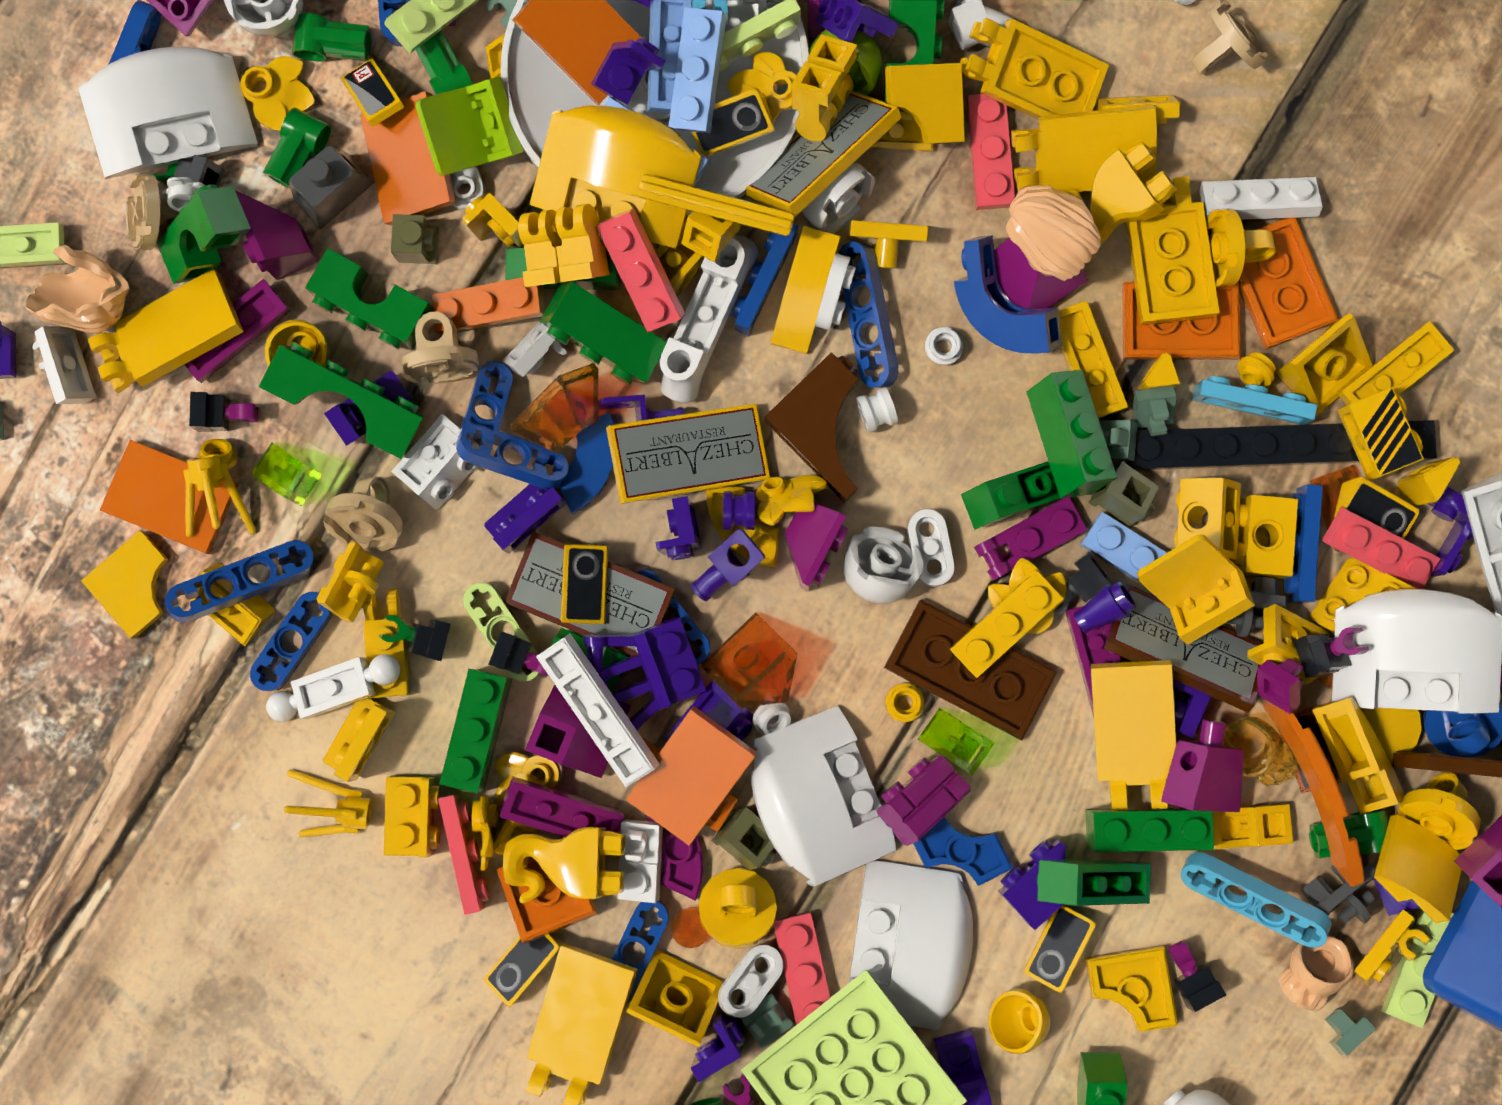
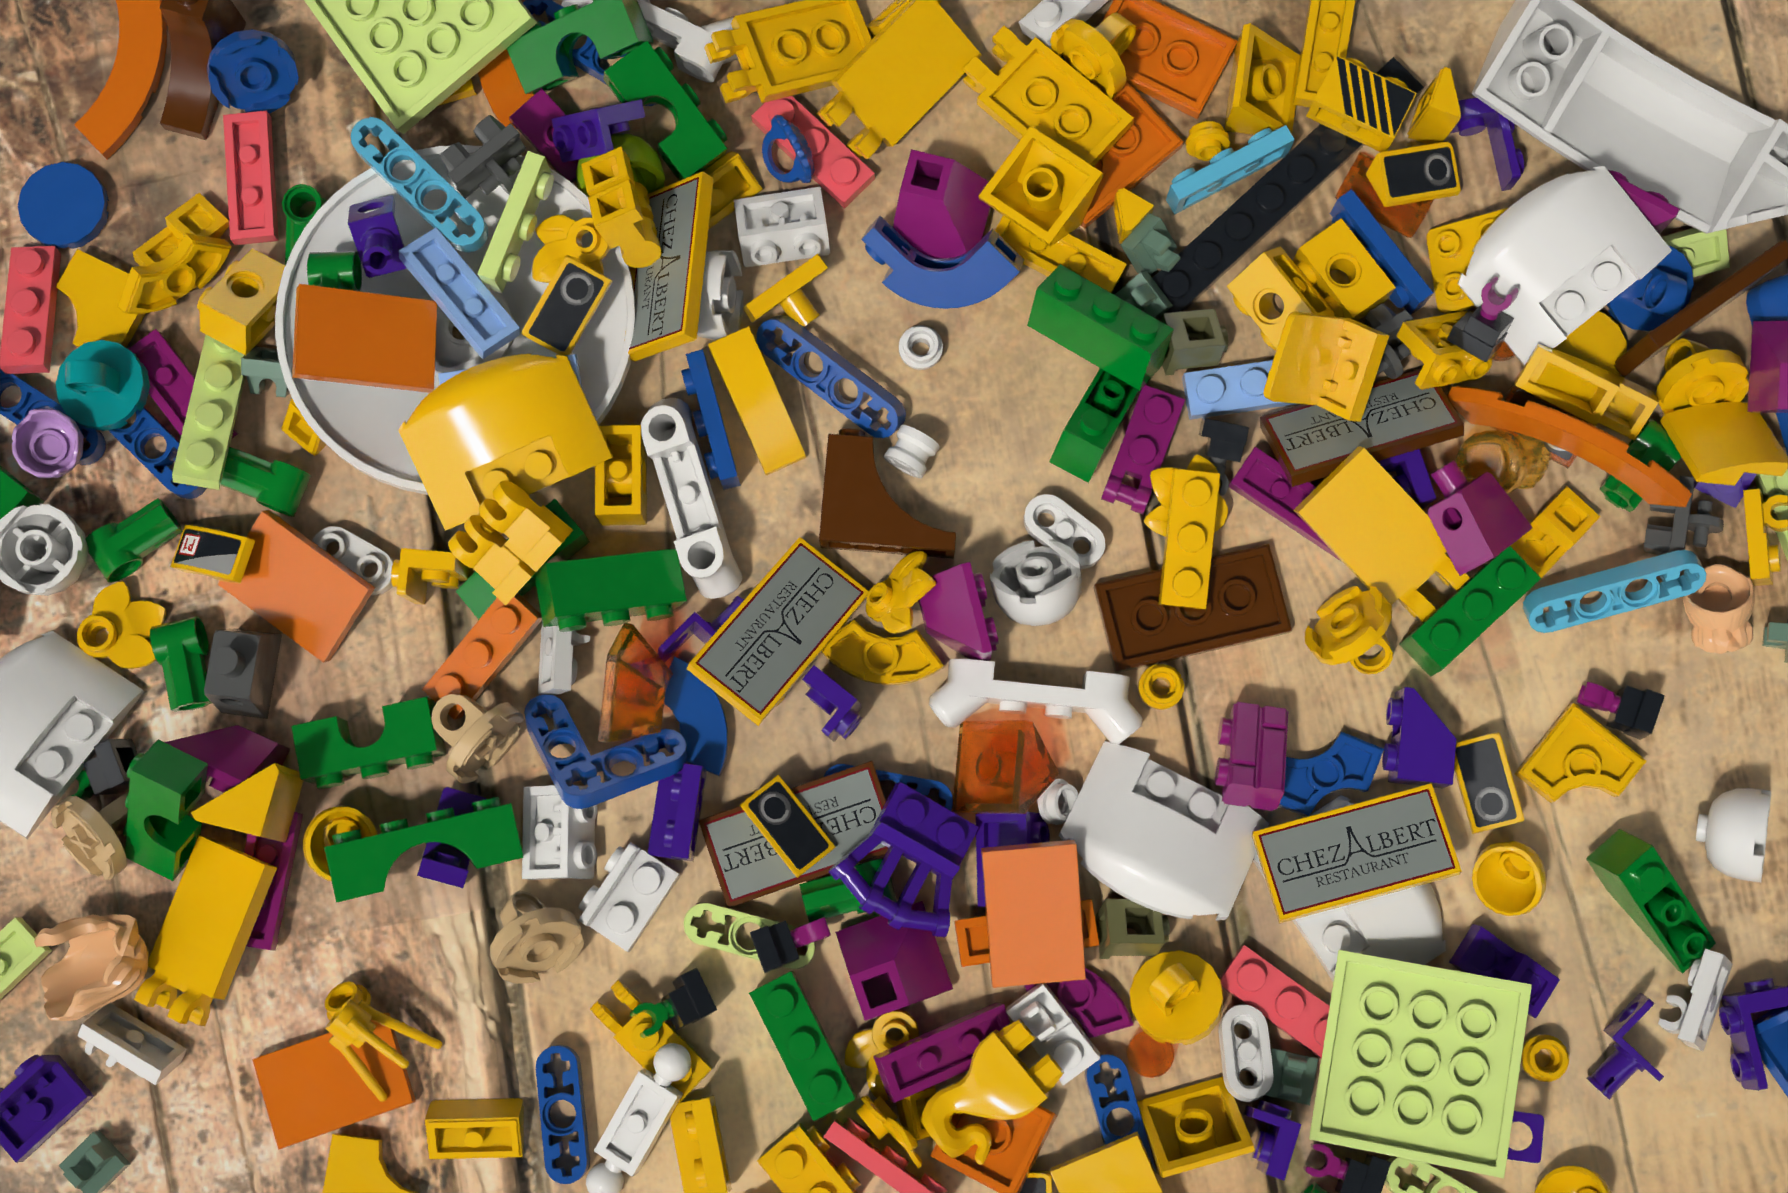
camera: 40 degrees left, 5 degrees down
(180, 191) = (111, 789): white plate -> none
(213, 412) = (310, 966): black piece -> none
(238, 575) = (462, 1095): blue beam -> none
(261, 283) = (257, 805): none -> yellow slope
(286, 474) = (425, 964): clear neon green slope -> none
(350, 582) = (573, 1010): yellow hips -> none
(414, 239) = (364, 653): olive brick -> none
(448, 540) = (627, 896): none -> white bracket
(468, 126) = (330, 508): lime bracket -> none
(598, 710) = (900, 926): white plate -> none
(625, 68) = (430, 336): dark purple bracket -> none
(640, 270) = (597, 502): coral plate -> none
(697, 70) = (499, 283): light blue plate -> none
(708, 234) = (628, 409): yellow brick -> none
(716, 205) = (617, 386): yellow axle -> none
(727, 566) = (899, 701): dark purple bracket -> none
(739, 510) = (868, 642): dark purple wheel -> none
(839, 277) = (779, 362): white plate -> none
(857, 677) = (1101, 698): none -> white plate
(922, 187) = (782, 227): none -> white bracket
(931, 97) = (723, 141): yellow tile -> none
(933, 918) = (1356, 853): none -> light grey tile
(956, 741) = (1237, 679): clear neon green slope -> none
(972, 157) = (803, 163): none -> blue piece
(1053, 230) = (932, 164): light nougat hair -> none
(1060, 773) = (1351, 626): none -> yellow tile
(1094, 882) = (1465, 695): green brick -> none
(1106, 607) = (1262, 450): dark purple cone -> none
(1115, 308) = (1043, 187): none -> yellow slope
(1123, 193) = (959, 92): yellow hips -> none
(1280, 684) = (1470, 385): magenta tile -> none
(1380, 548) = (1446, 201): coral plate -> none

